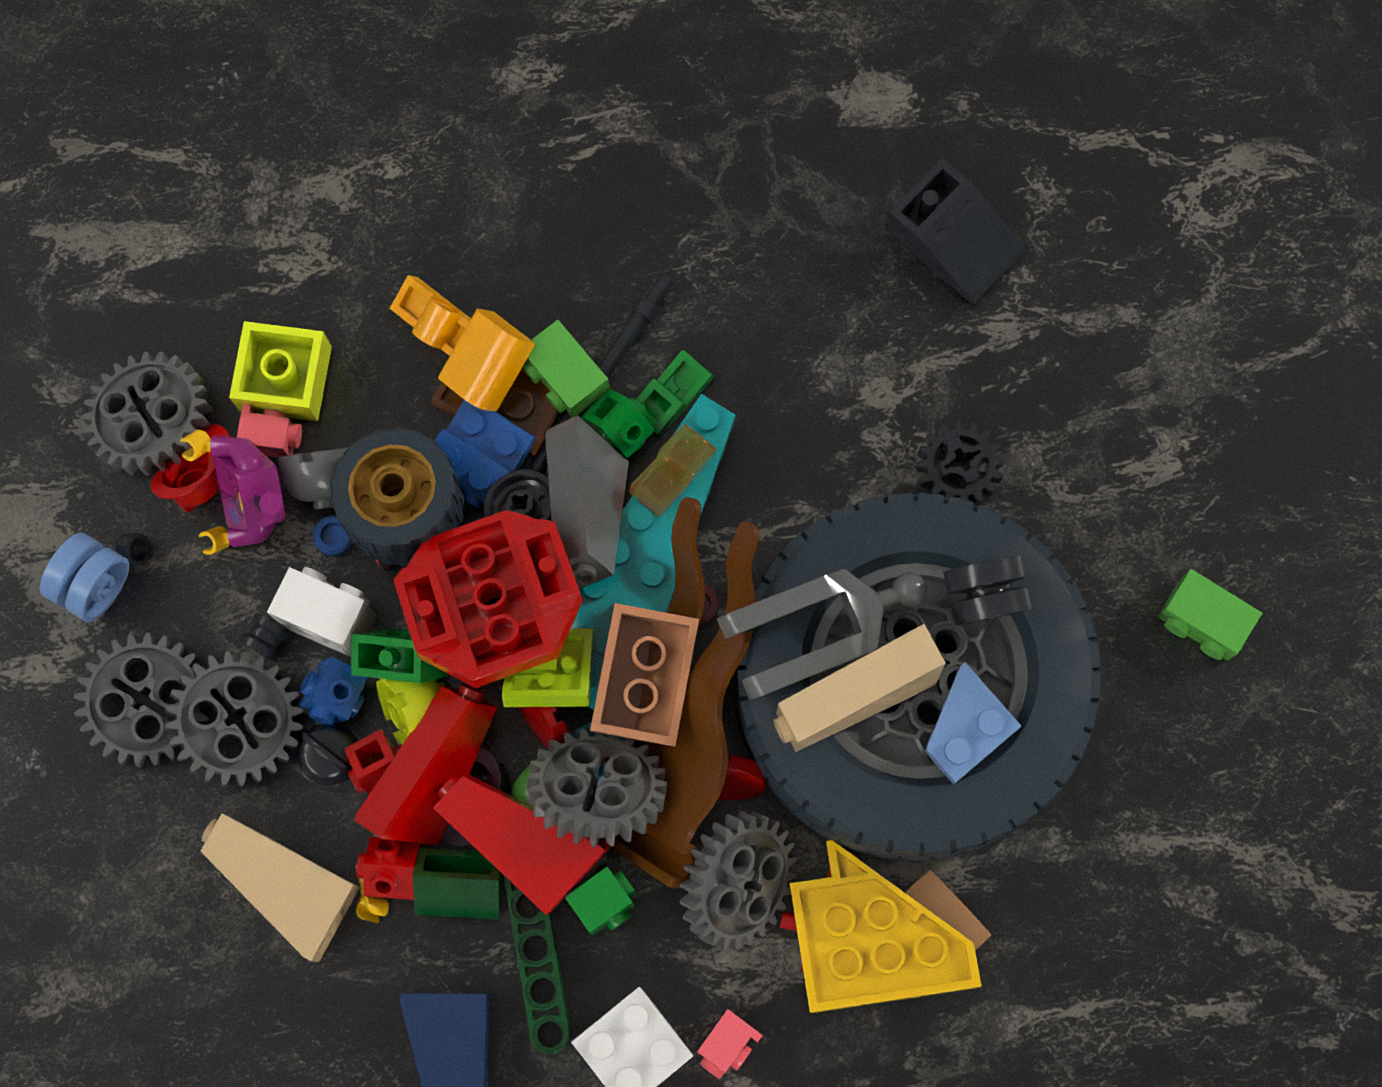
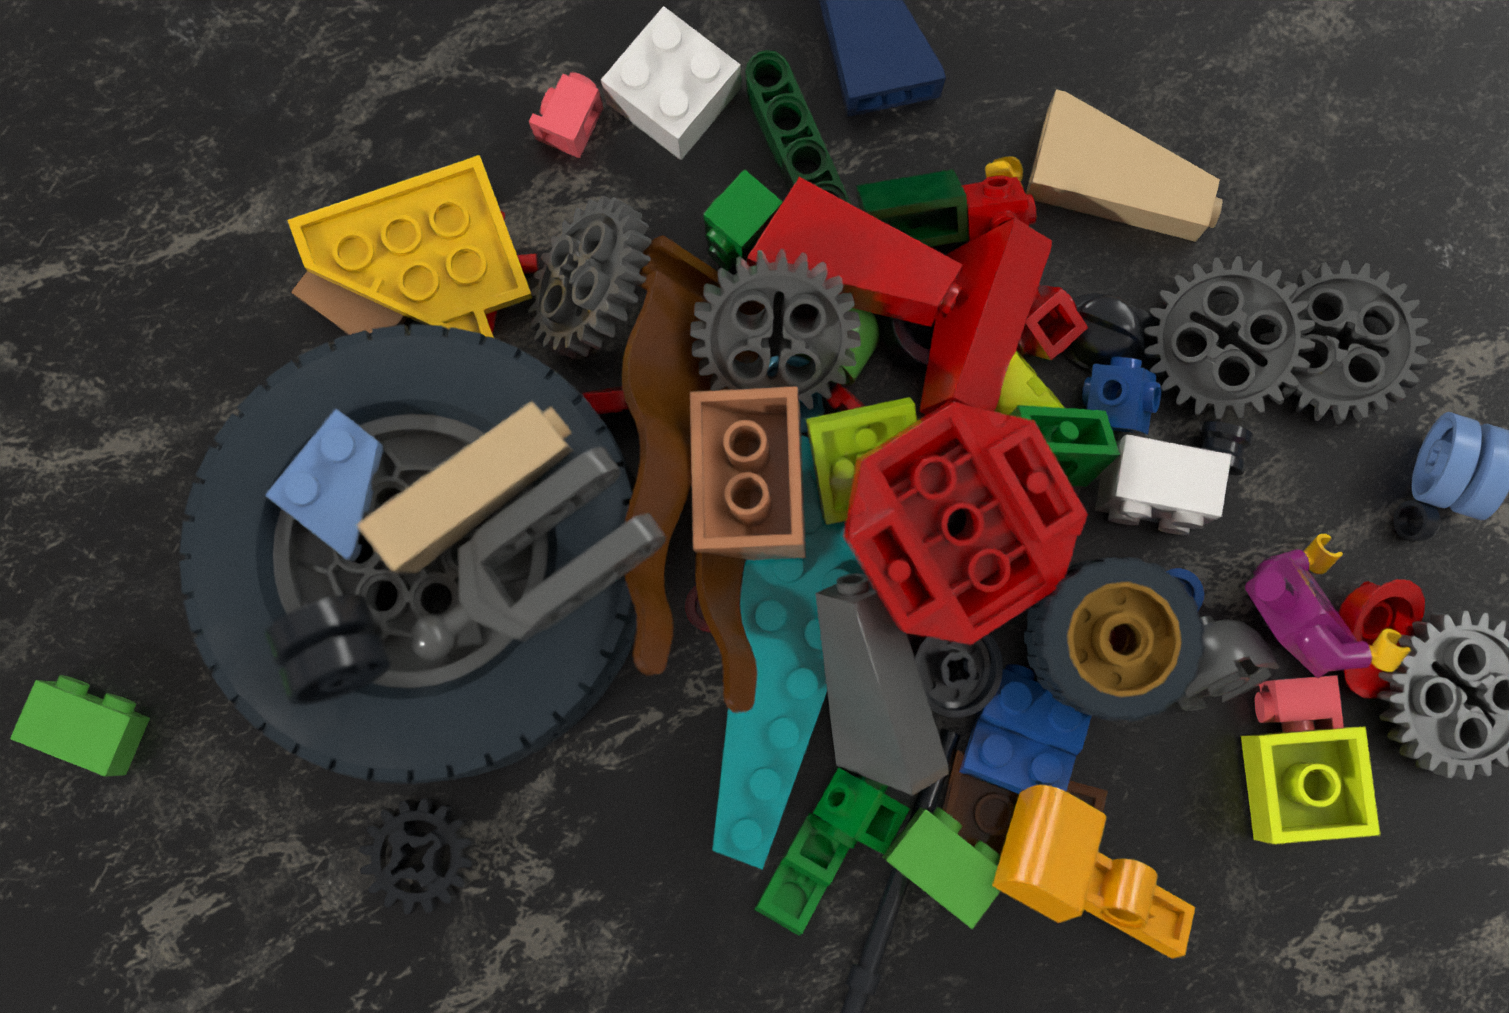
camera: 170 degrees right, 5 degrees up
(672, 470) = (774, 752): clear orange slope -> none

